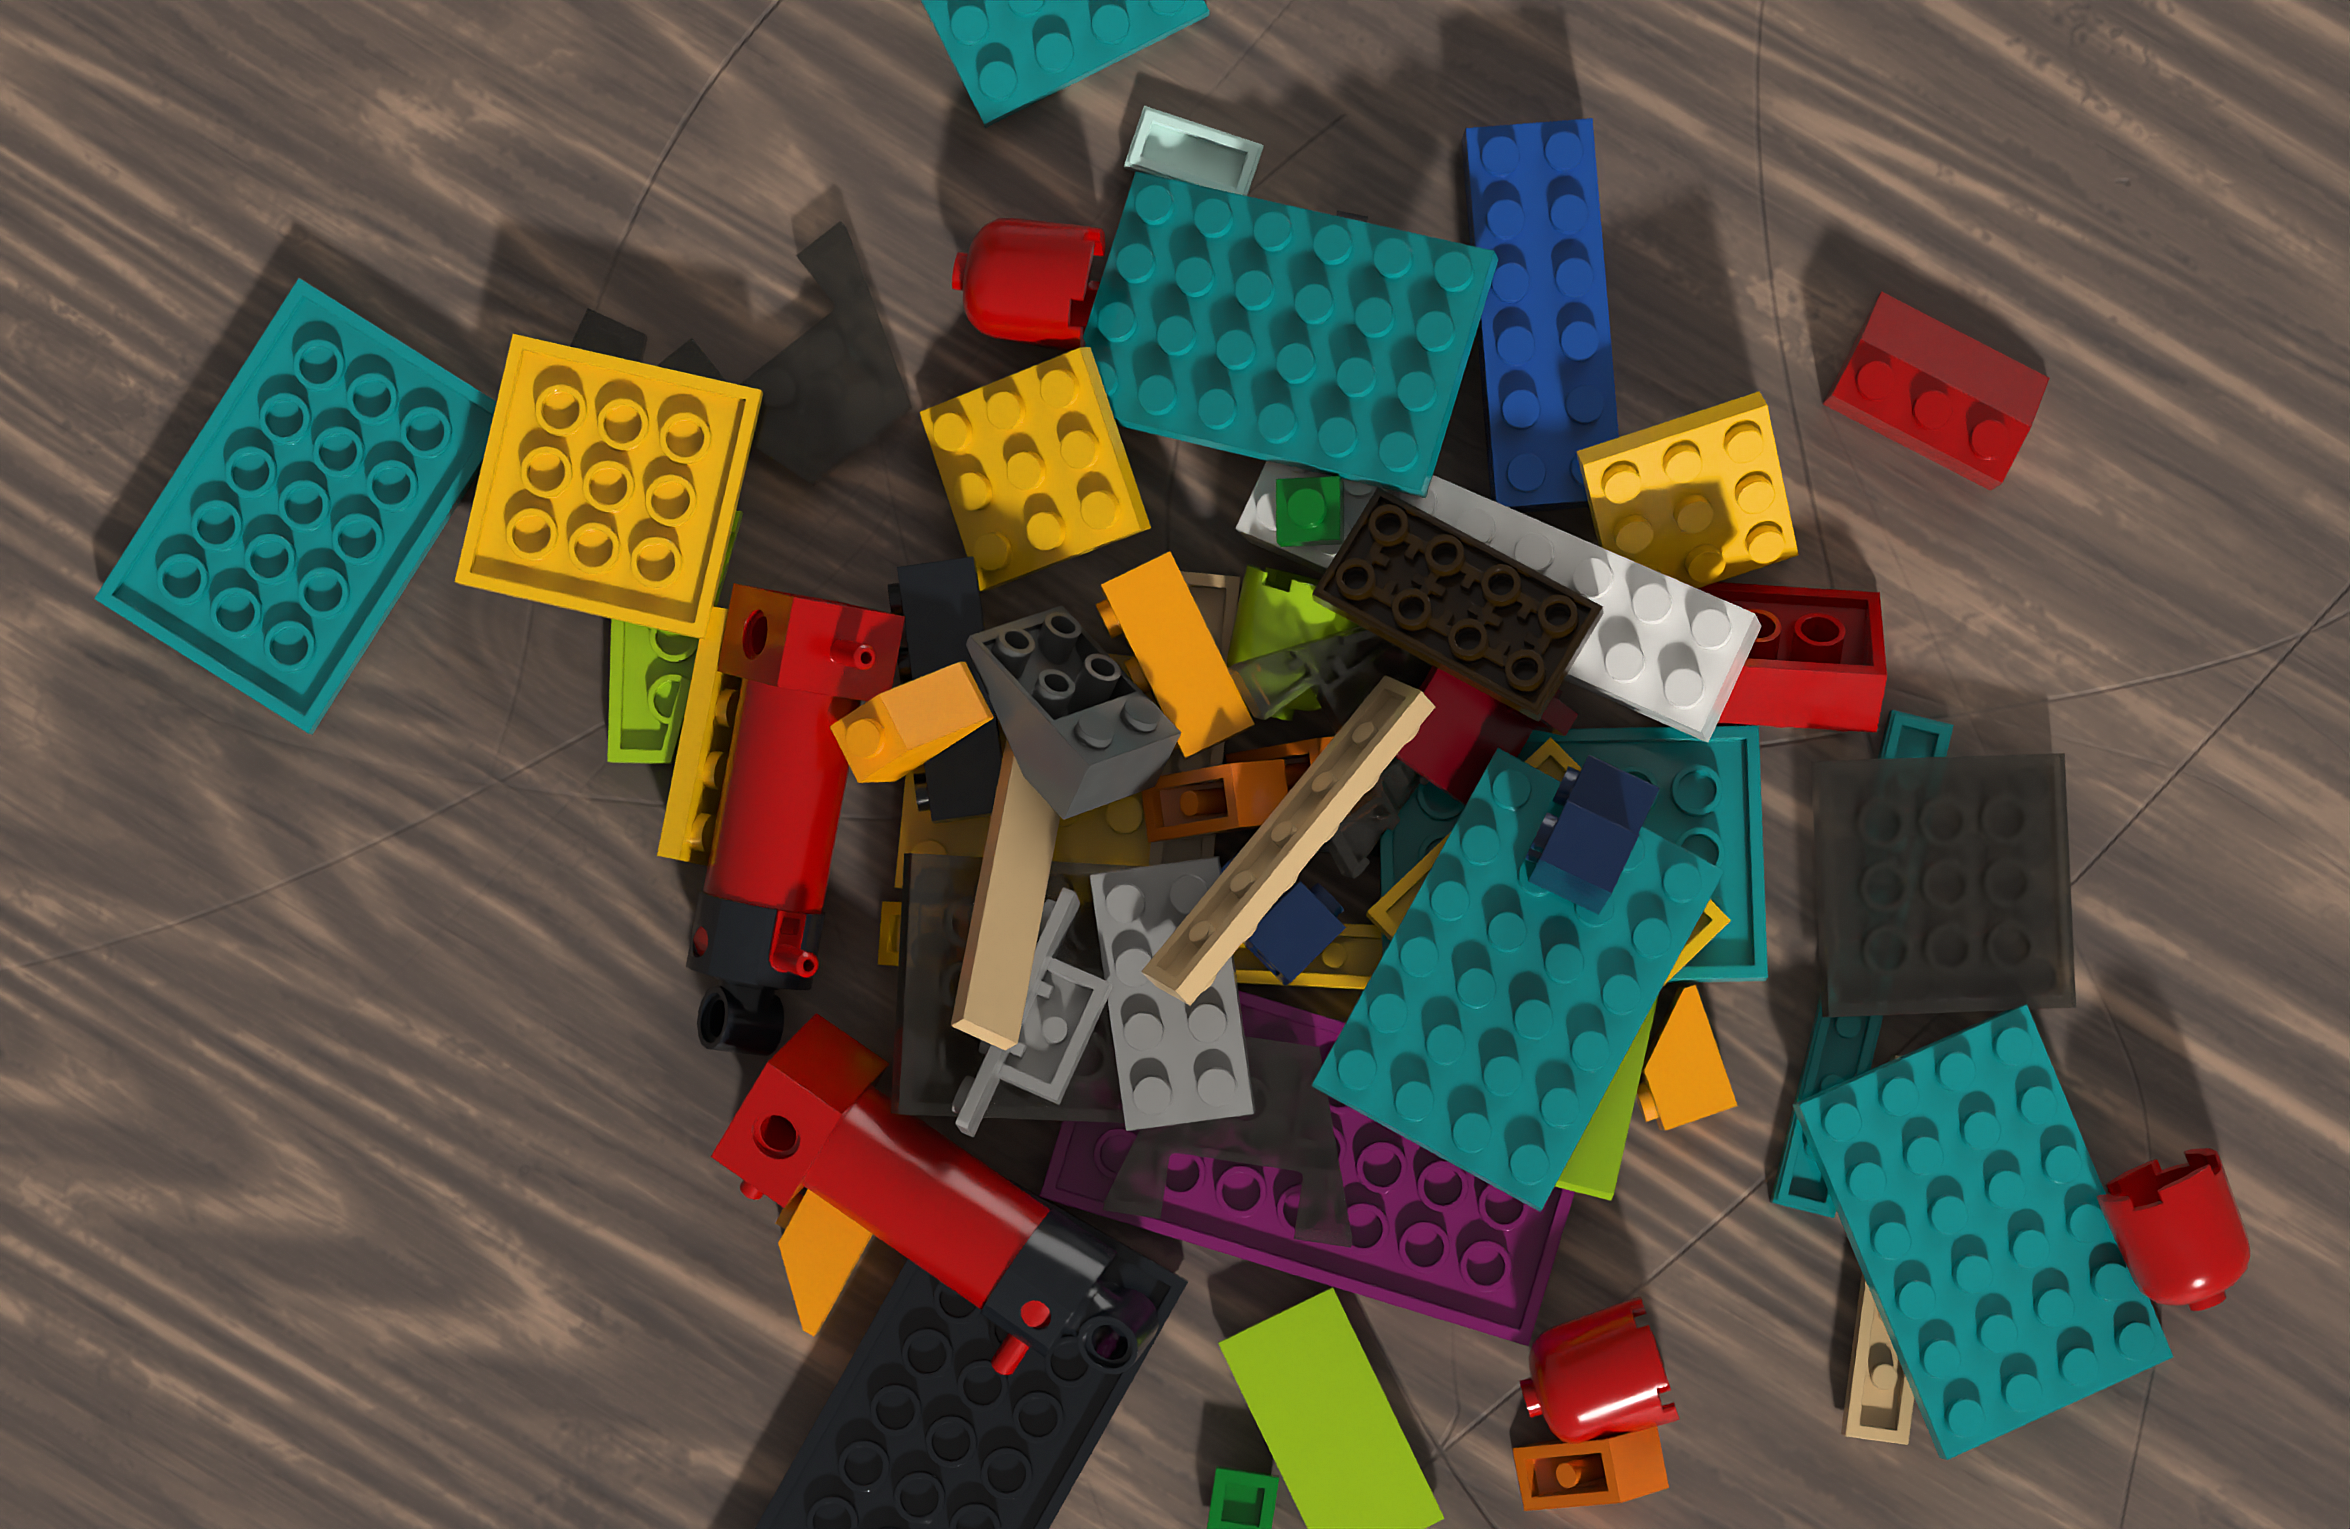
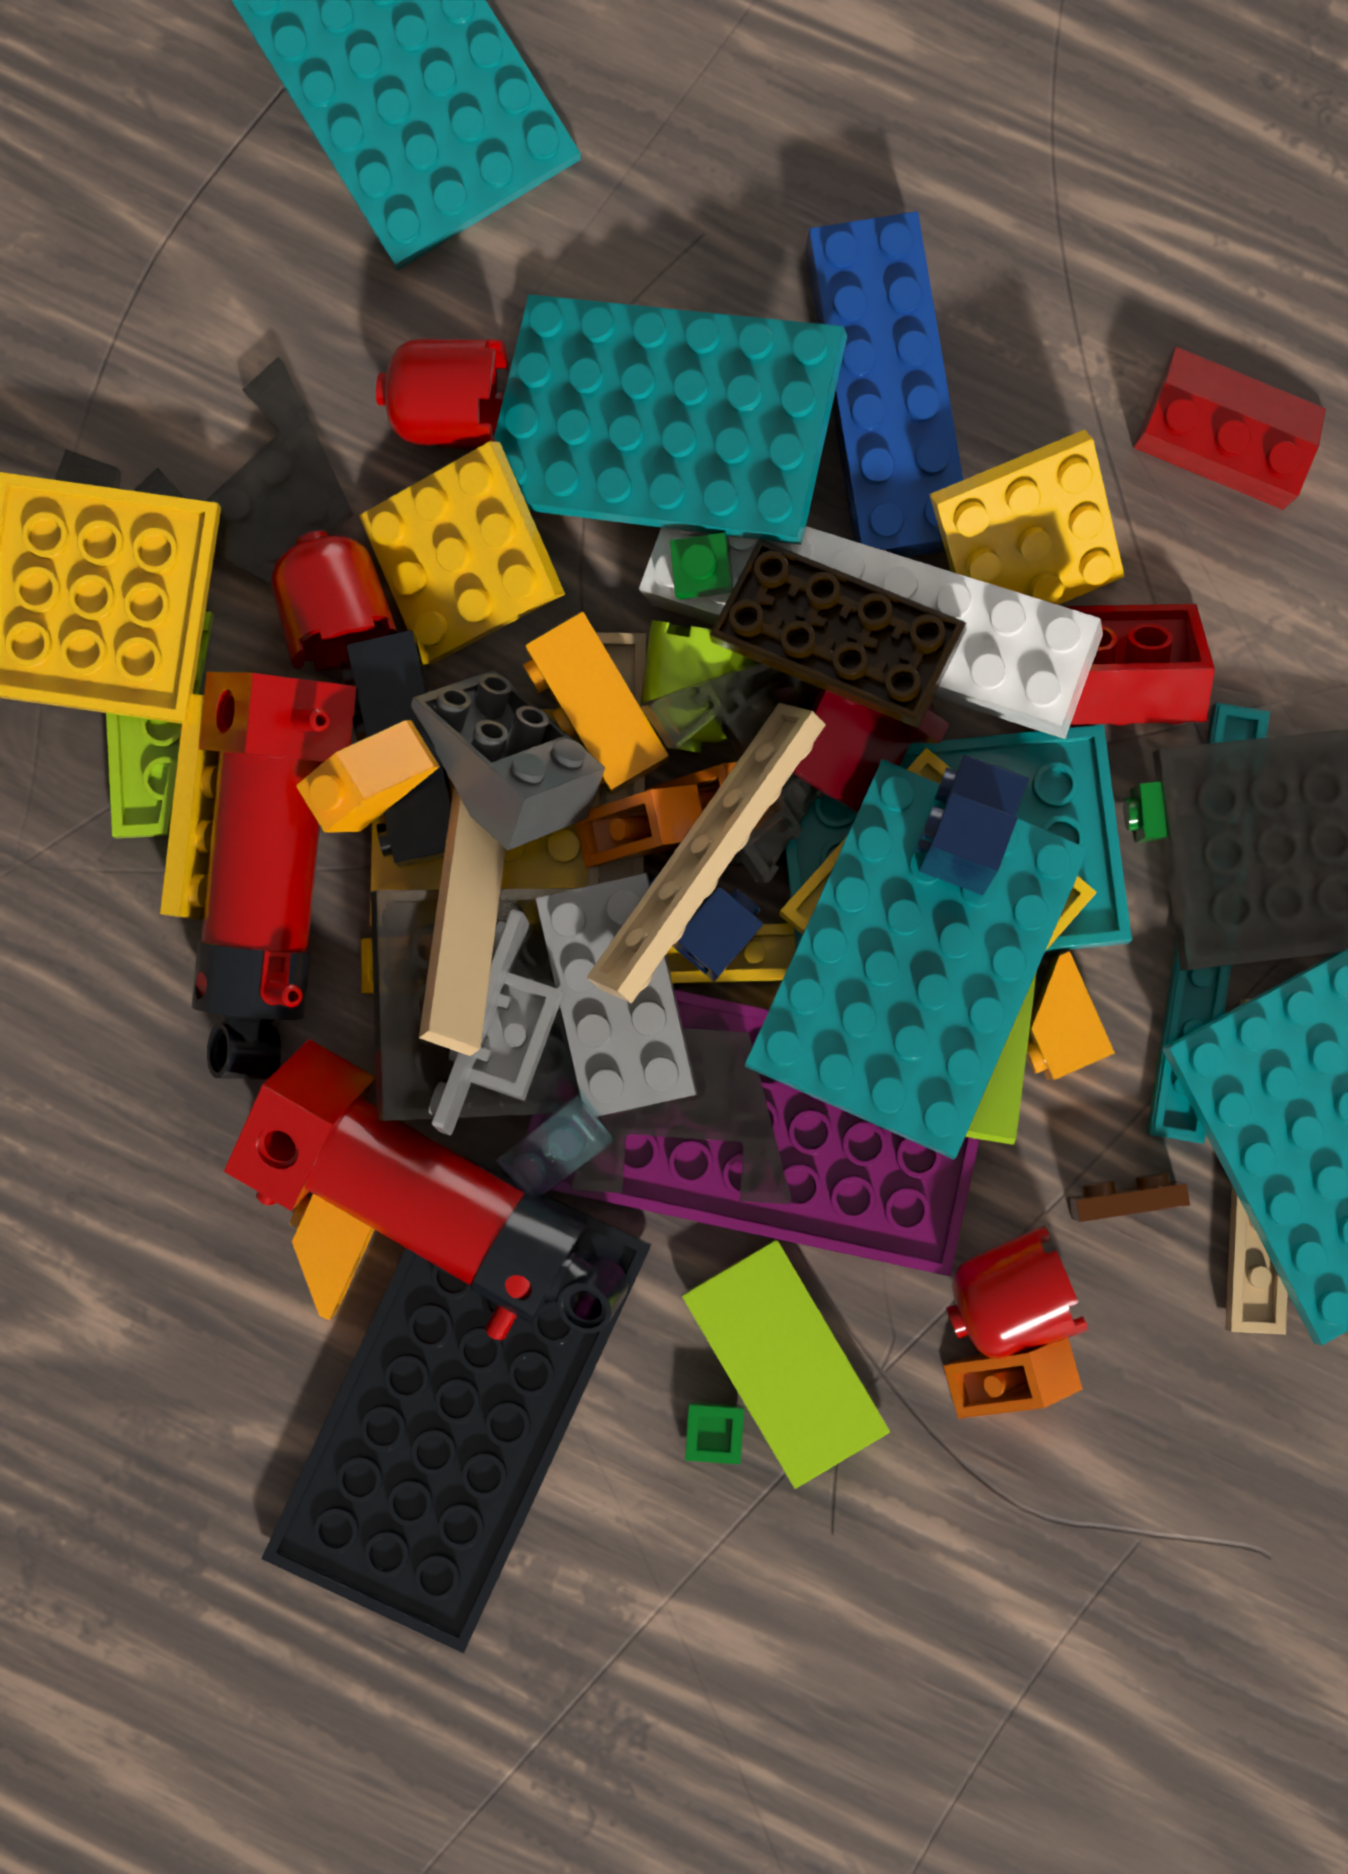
camera: 10 degrees left, 0 degrees up
(879, 510) = (328, 599): none -> red cylinder
(1088, 1161) = (555, 1148): none -> clear light blue plate
(1192, 153) = (575, 274): light aqua tile -> none
(1712, 1274) = (1152, 1194): none -> reddish brown plate
(1798, 831) = (1145, 812): none -> green plate

